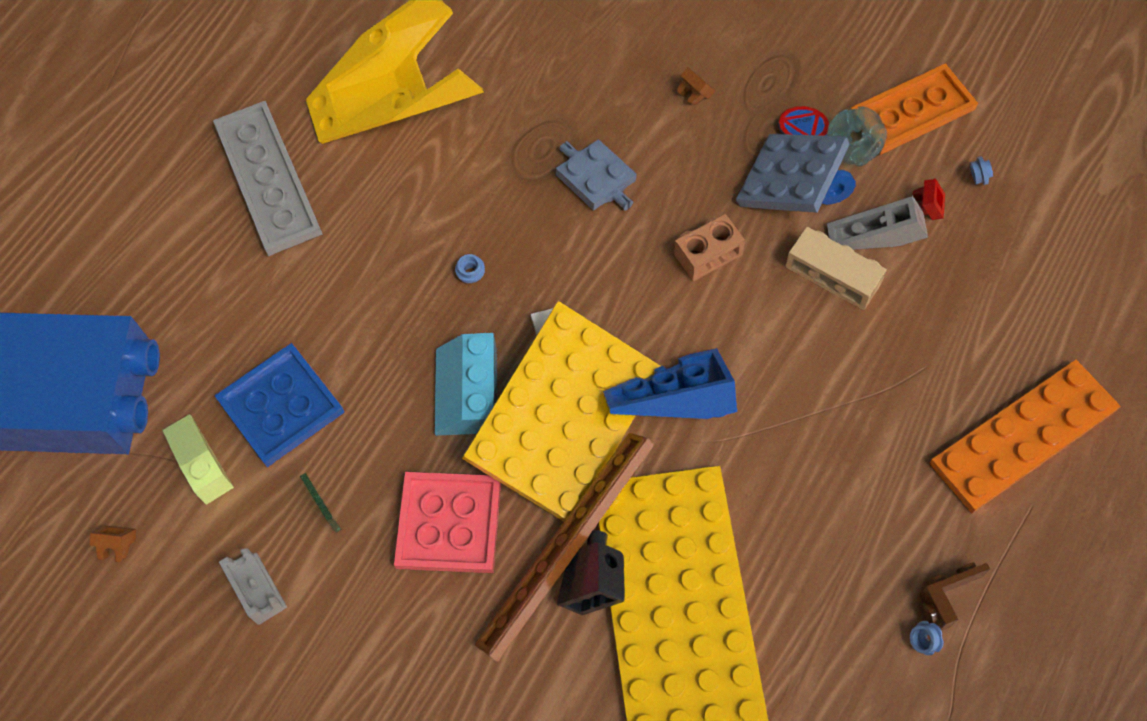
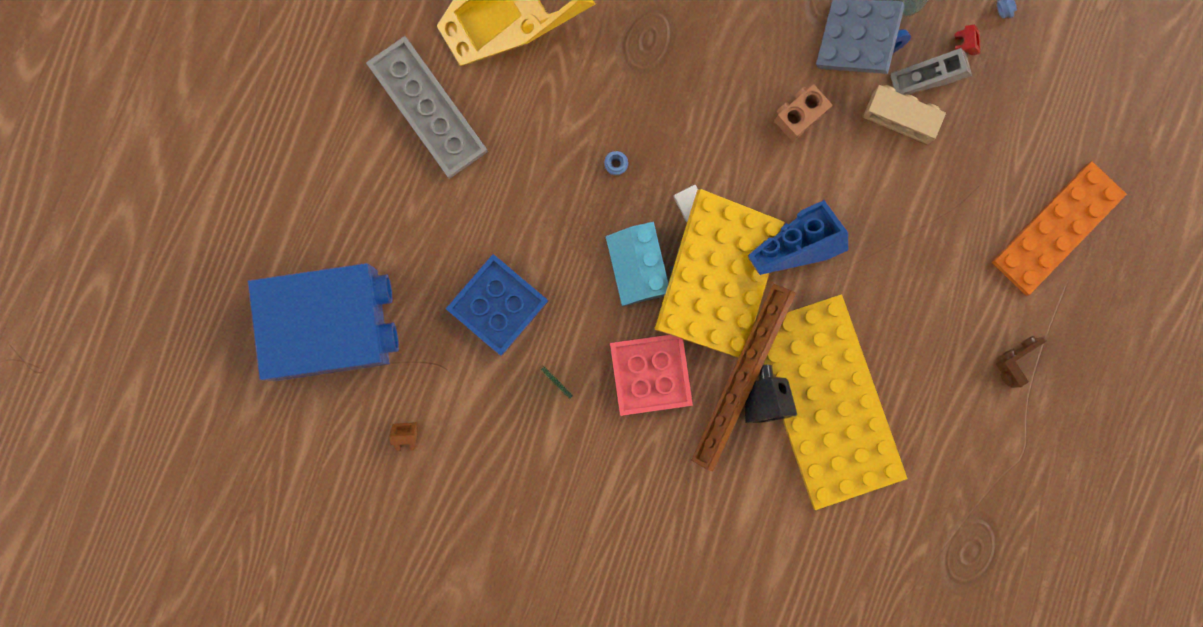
camera: 20 degrees left, 20 degrees up
(197, 460) = (445, 359): yellowish green slope -> none
(253, 586) = (520, 449): light grey hinge -> none
(596, 175) = (698, 59): sand blue plate -> none
(919, 638) = (1004, 401): medium blue plate -> none

